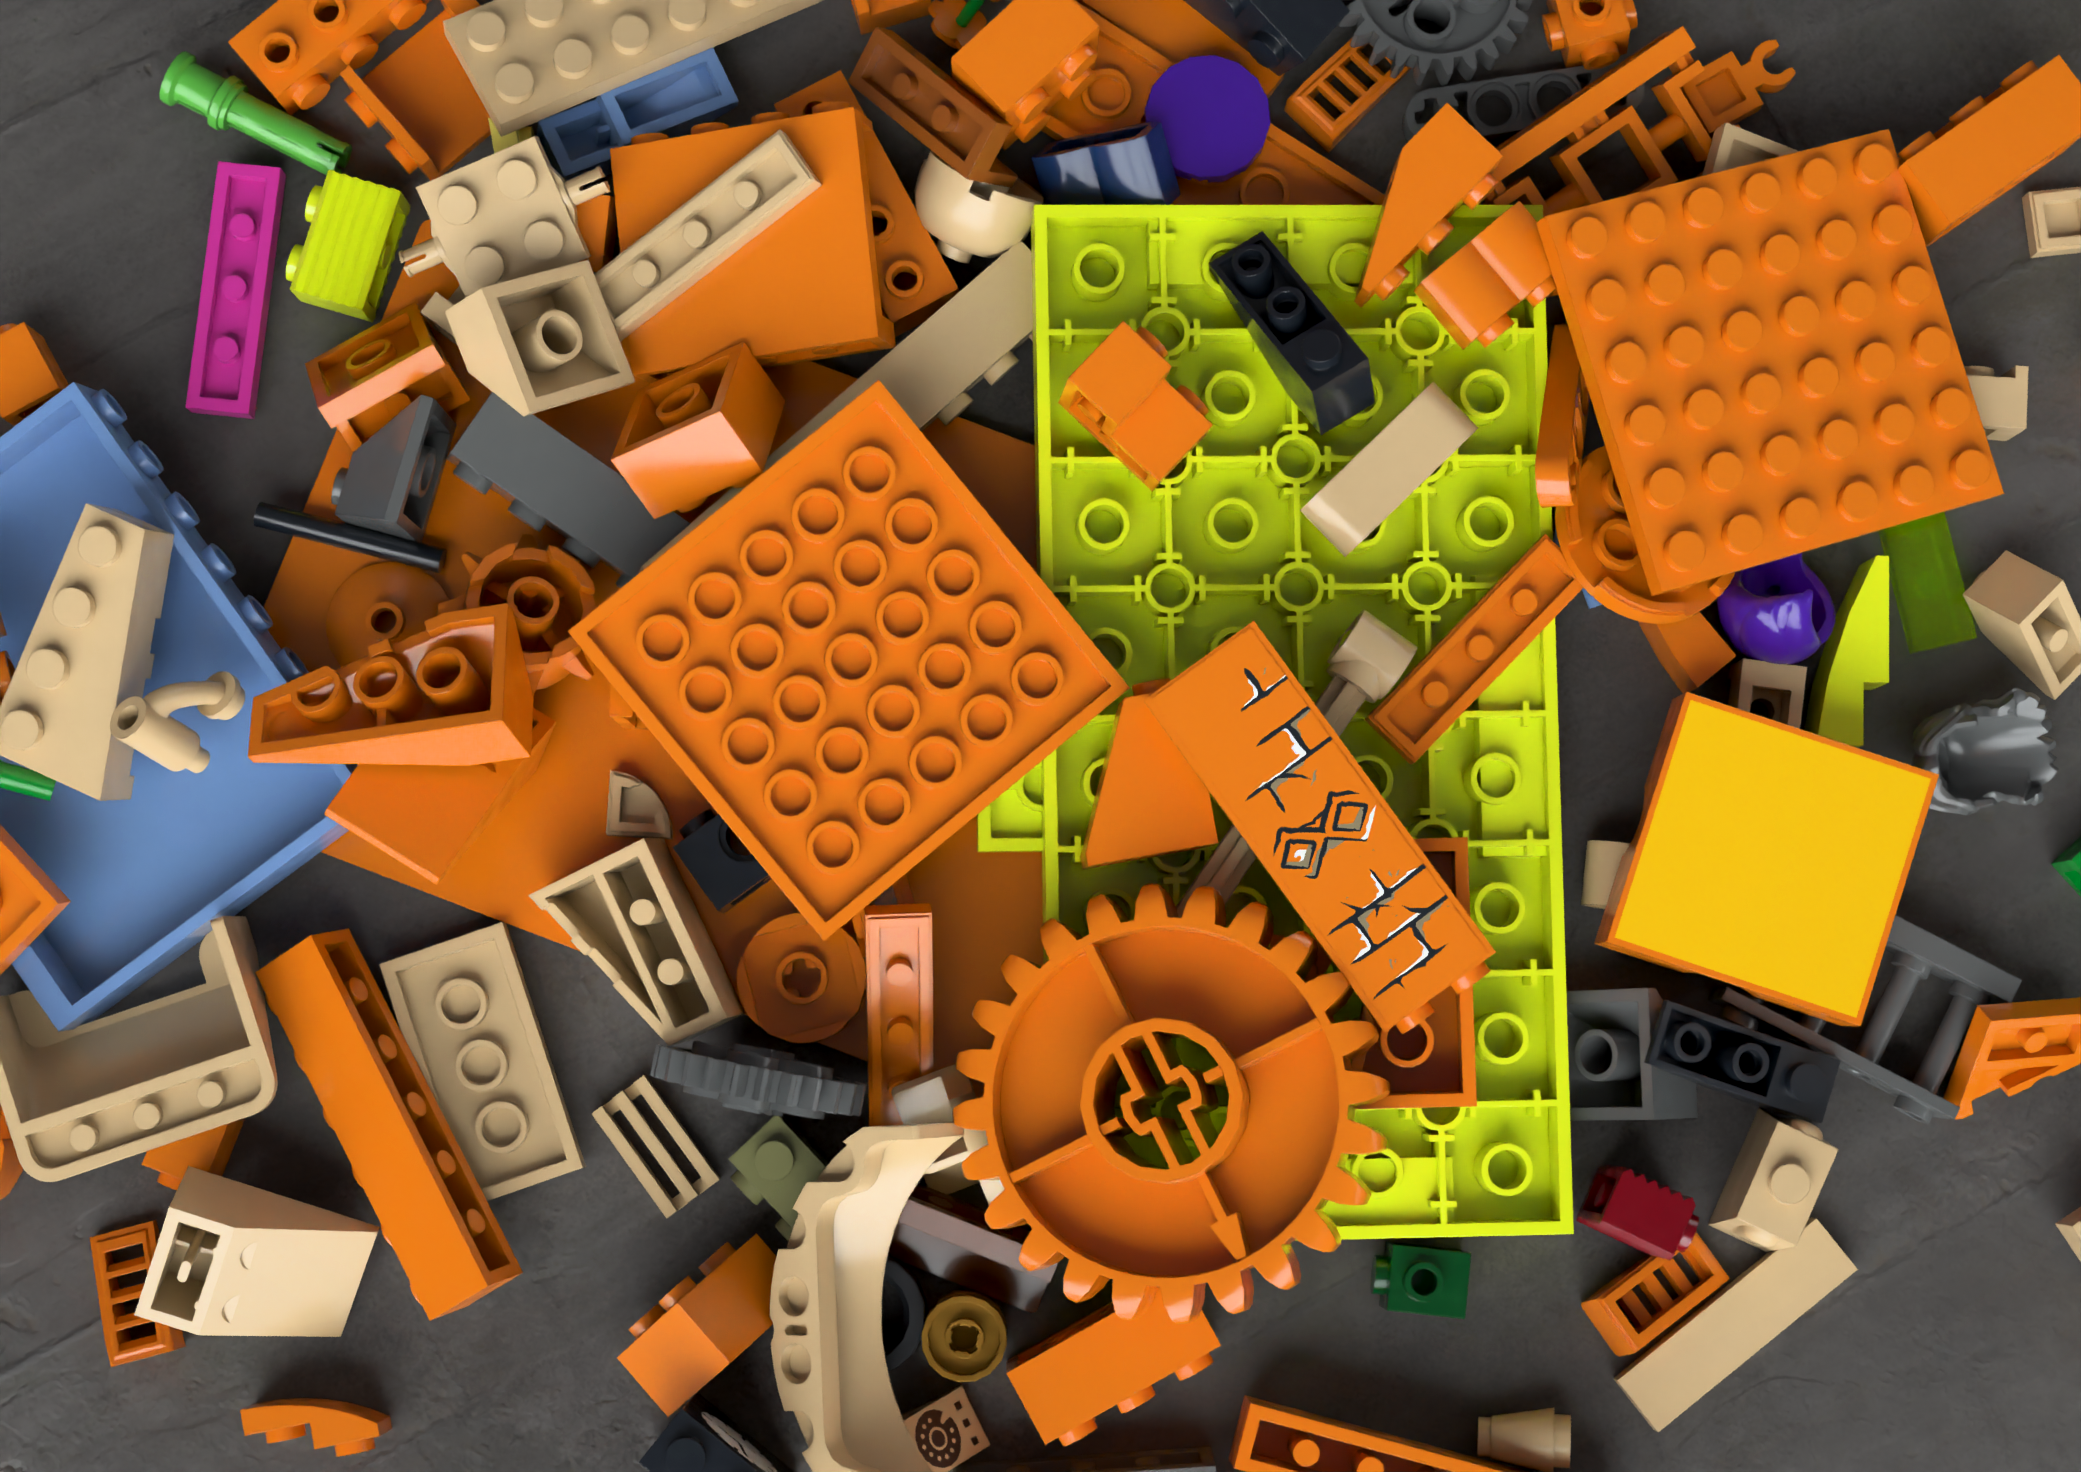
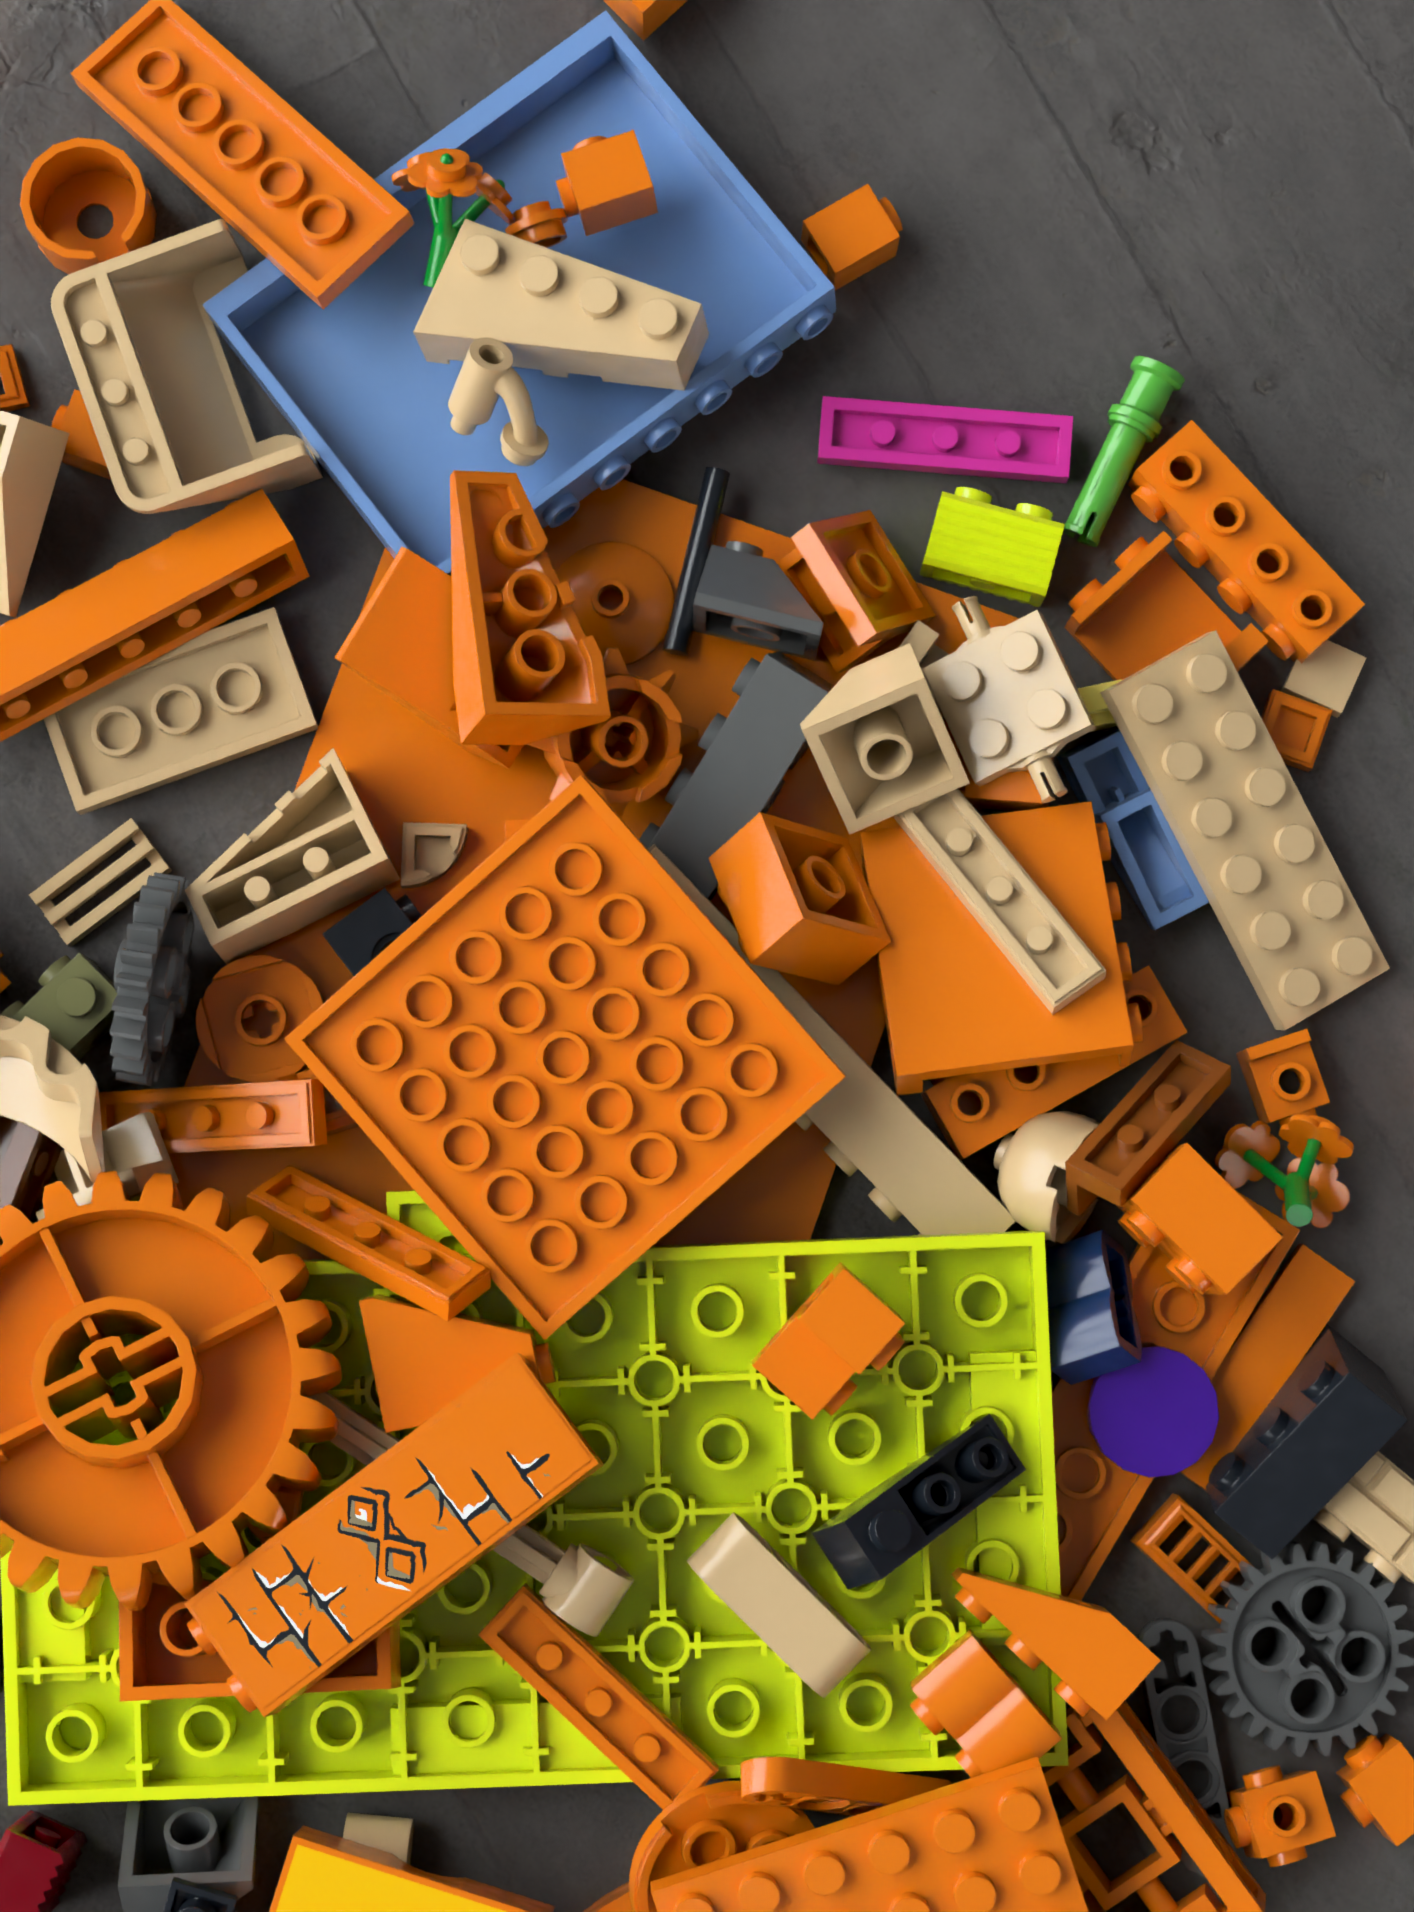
camera: 90 degrees right, 0 degrees up
(1028, 863) = (369, 1242): none -> orange tile

